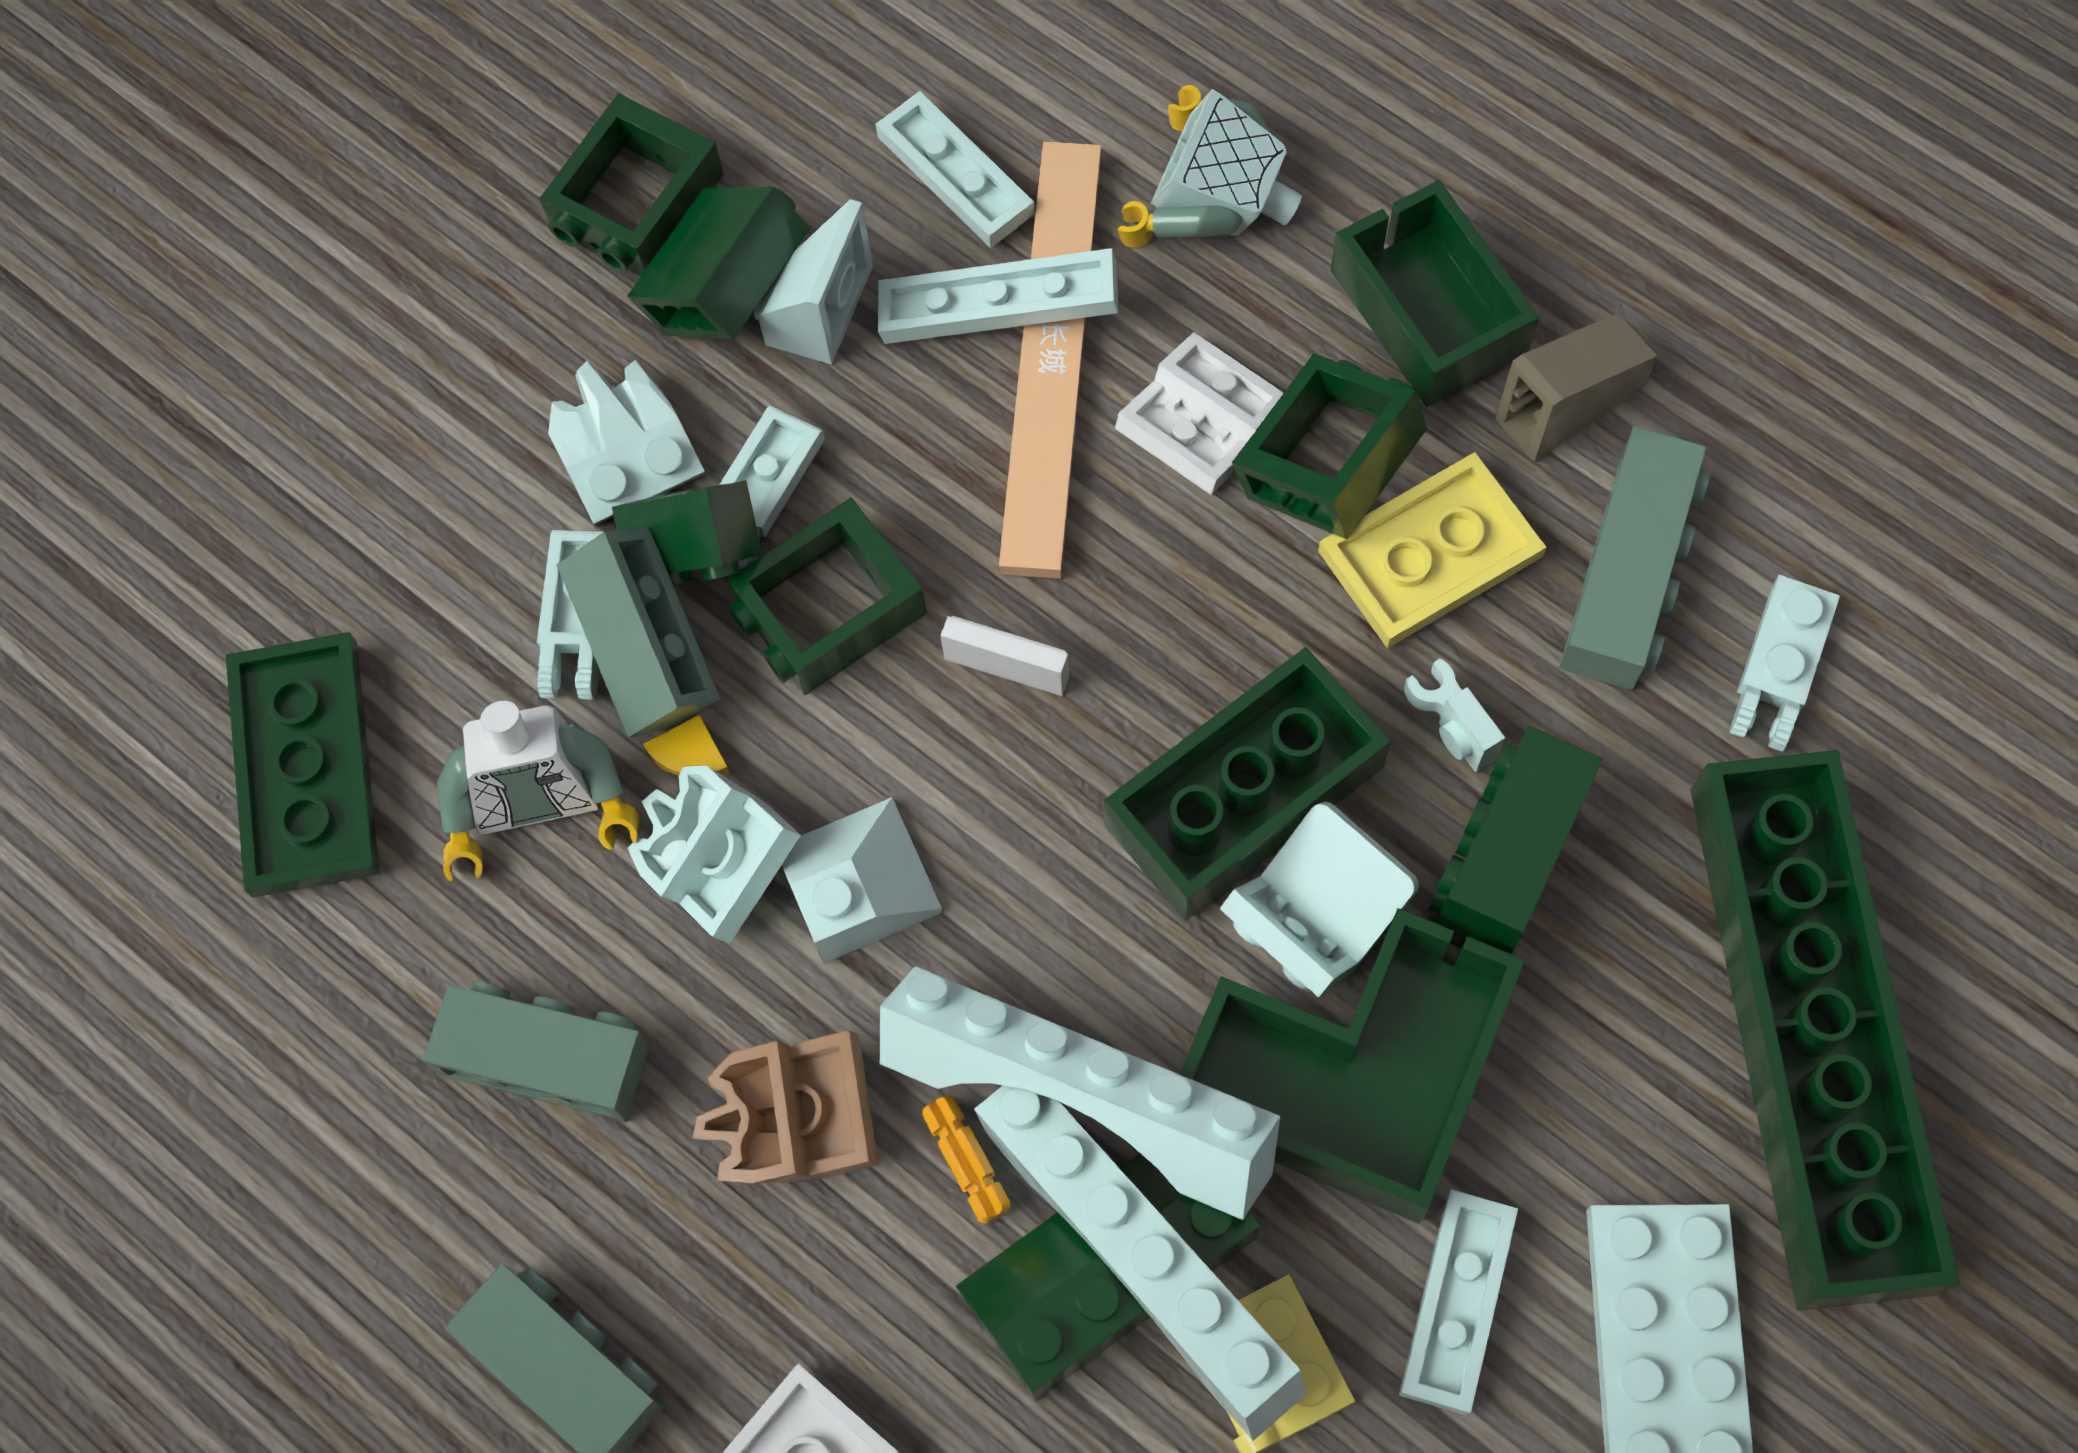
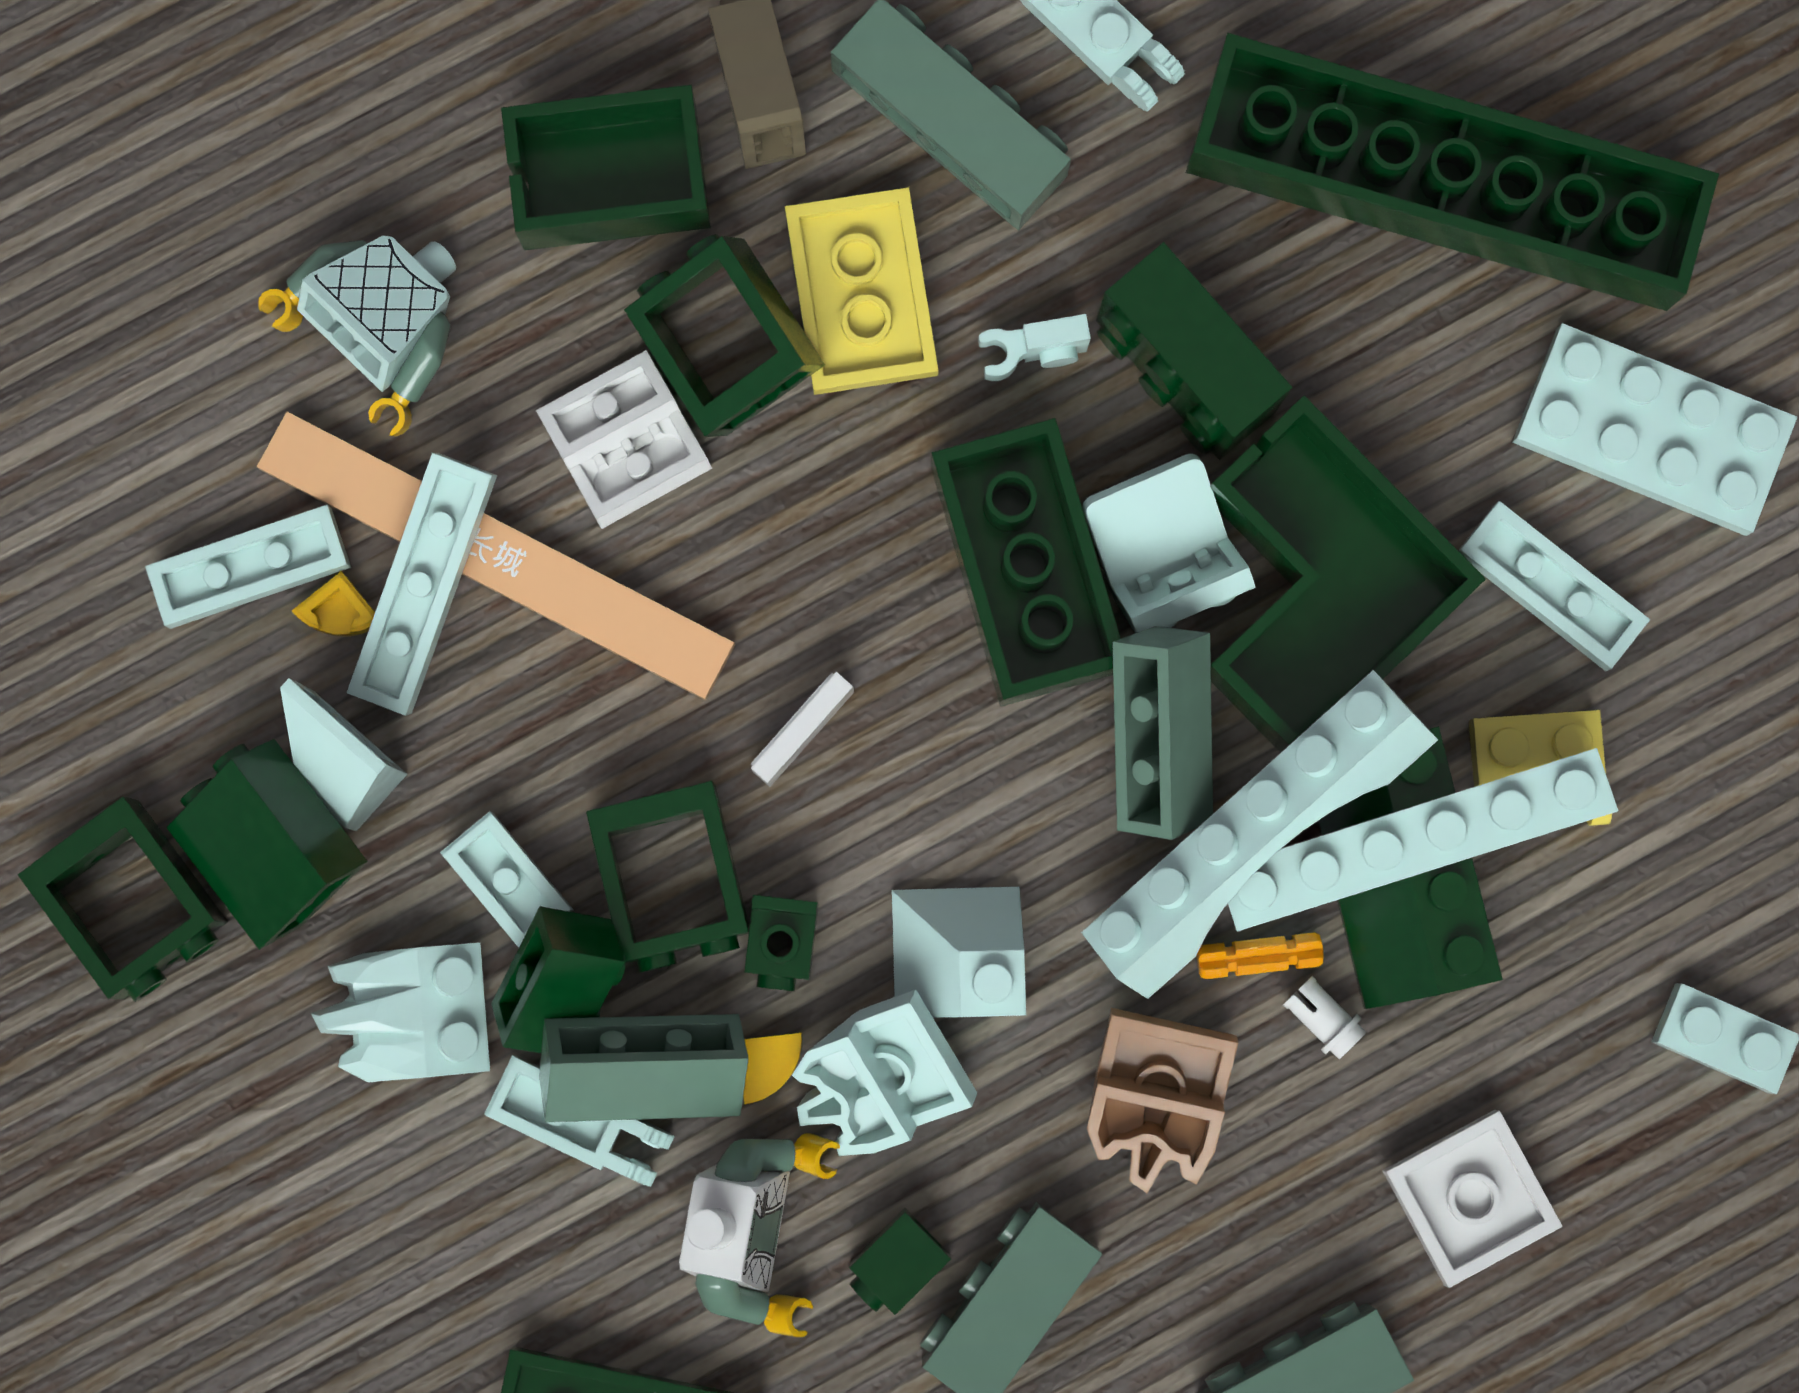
camera: 75 degrees left, 15 degrees up
(544, 933) = (897, 1263): none -> dark green brick
(817, 730) = (786, 915): none -> dark green brick
(929, 1245) = (1327, 1022): none -> white pin
(950, 247) = (336, 609): none -> yellow tile
(1139, 959) = (1163, 731): none -> sand green brick

